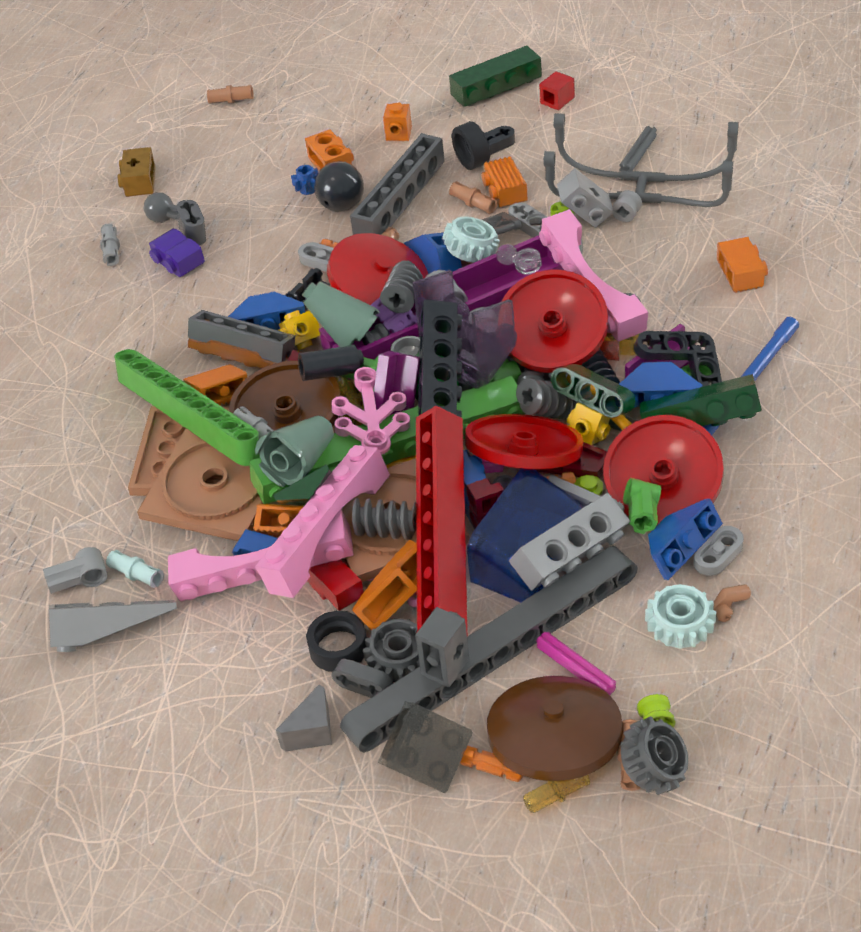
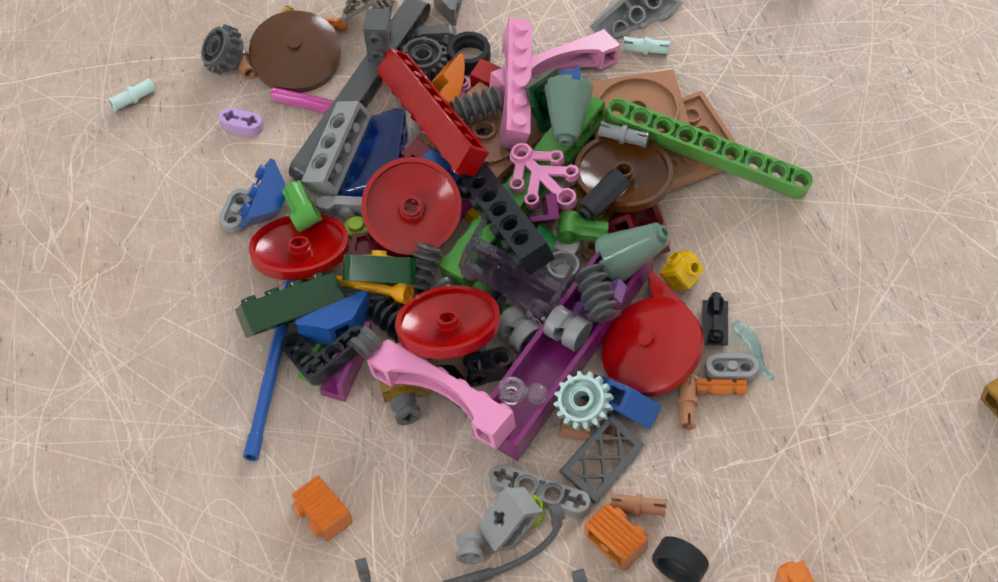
camera: 150 degrees right, 10 degrees up
(85, 569) = (681, 30): light grey piece -> none
(109, 244) = (948, 305): light grey pin -> none
(176, 252) = (873, 317): dark purple brick -> none
(190, 219) = (902, 361): dark grey beam -> none
(218, 383) = (704, 186): orange brick -> none
(238, 340) = (723, 235): dark grey piece -> none
(267, 309) = (729, 279): blue slope -> none
(286, 274) = (755, 346): none -> clear light blue animal
(304, 179) = (827, 459): blue gear -> none
(327, 148) = (836, 500): orange brick -> none
(338, 186) = (777, 447): black piece -> none
(399, 186) = (716, 474): dark grey brick -> none
(642, 317) = (365, 342): none -> dark grey wheel
(656, 707) = (234, 83): lime wheel -> none
(670, 663) = (241, 121): none -> lavender beam
(680, 616) = (243, 150): light aqua gear -> none
(727, 597) = (218, 174): nougat arm -> none
(806, 759) = (131, 95): none -> light aqua pin

